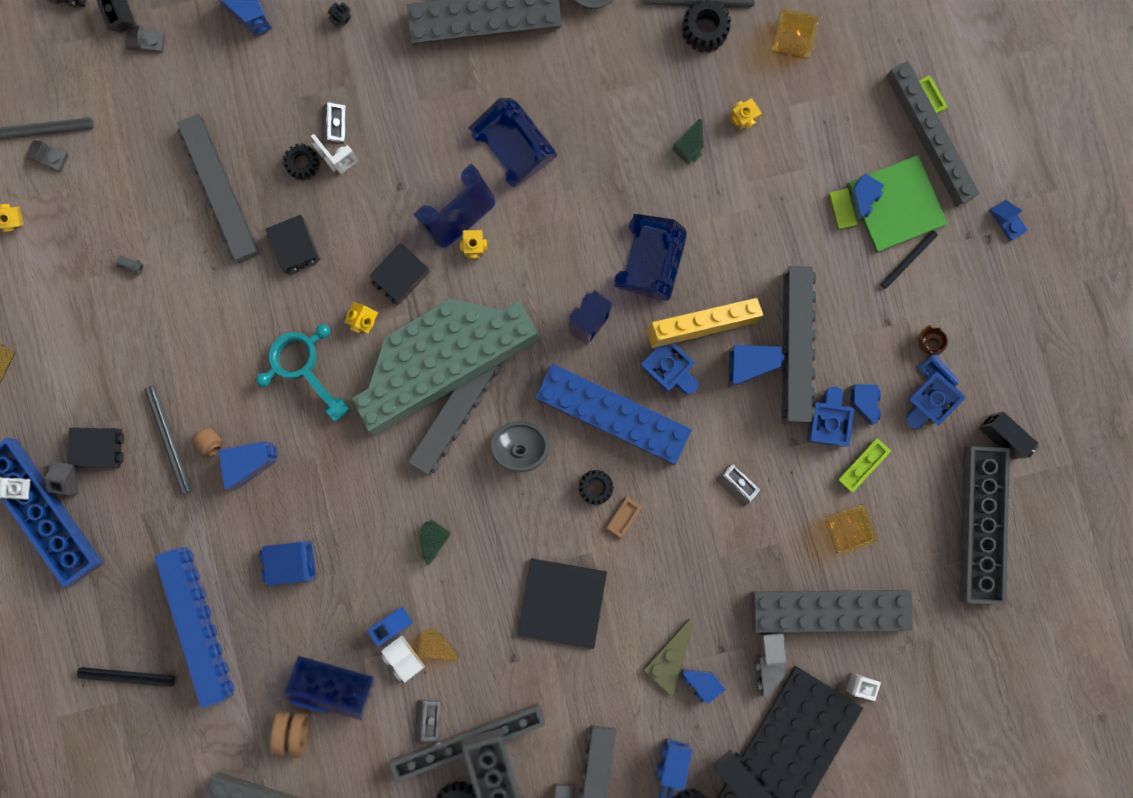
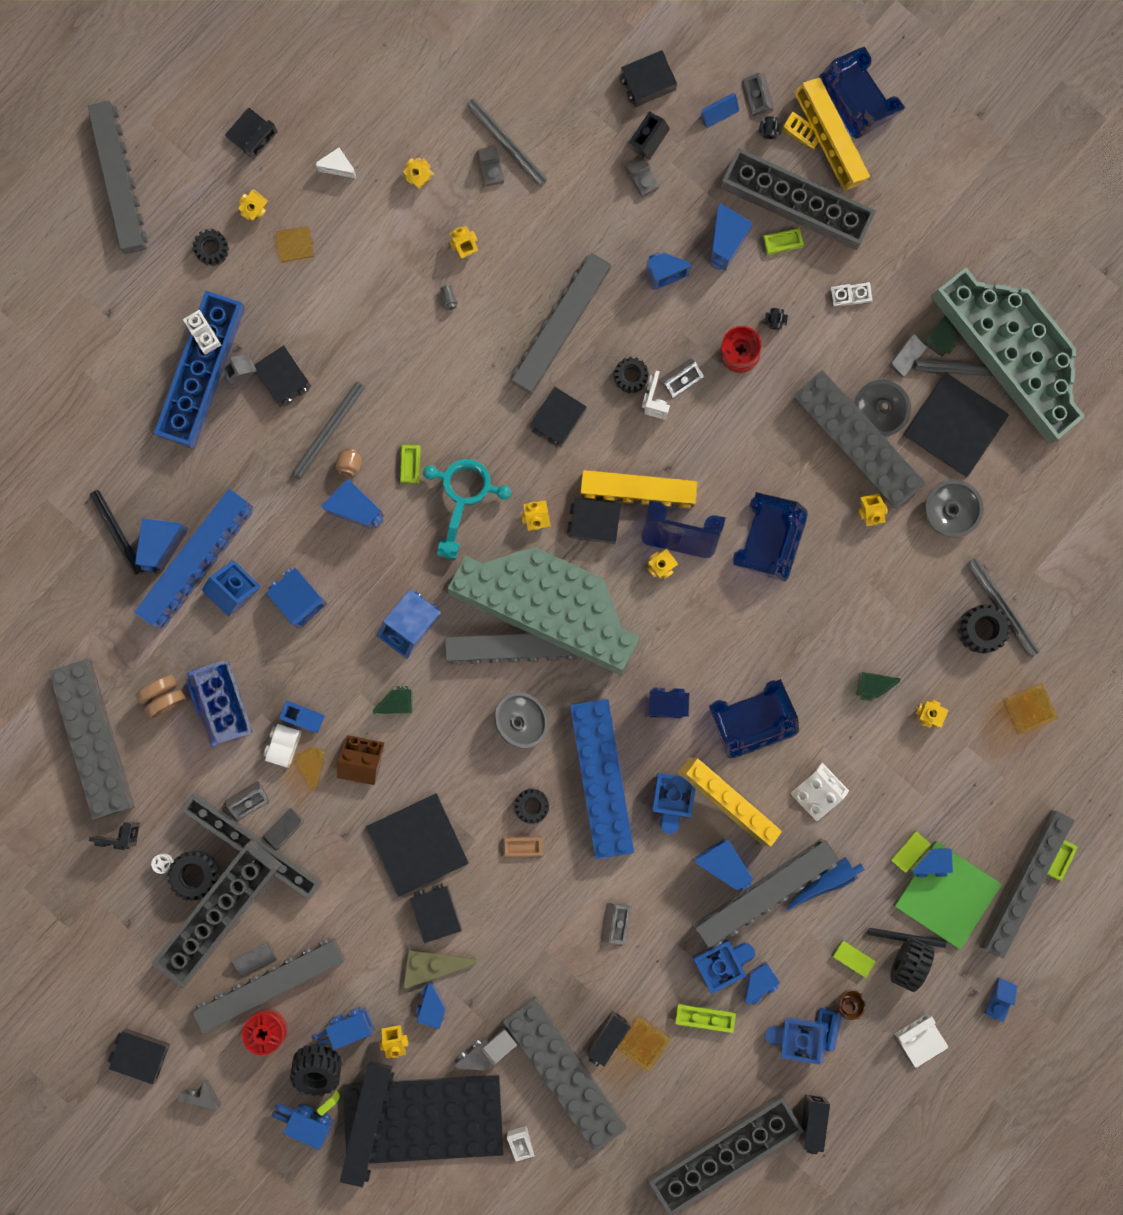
camera: 55 degrees right, 0 degrees up
(91, 220) = (463, 241): none -> yellow brick
(159, 647) = (158, 543): none -> blue slope
(235, 72) = (666, 269): none -> blue slope
(241, 612) = (230, 588): none -> blue slope
(245, 392) = (410, 464): none -> lime tile
(337, 50) = (741, 338): none -> red wheel
(375, 484) = (408, 623): none -> slope
(398, 220) = (638, 488): none -> yellow brick
(459, 602) = (360, 760): none -> reddish brown slope
(472, 705) = (283, 828): none -> flat silver slope
(549, 45) = (872, 510): none -> yellow brick
(628, 627) = (435, 913): none -> black brick
(710, 735) = (393, 1041): none -> yellow brick
(746, 247) = (820, 792): none -> white bracket
(823, 287) = (832, 880): none -> blue piece
(828, 556) = (608, 1039): none -> black brick
(897, 313) = (854, 958): none -> lime tile
(935, 268) = (912, 964): none -> black tyre
(998, 304) = (921, 1040): none -> white bracket

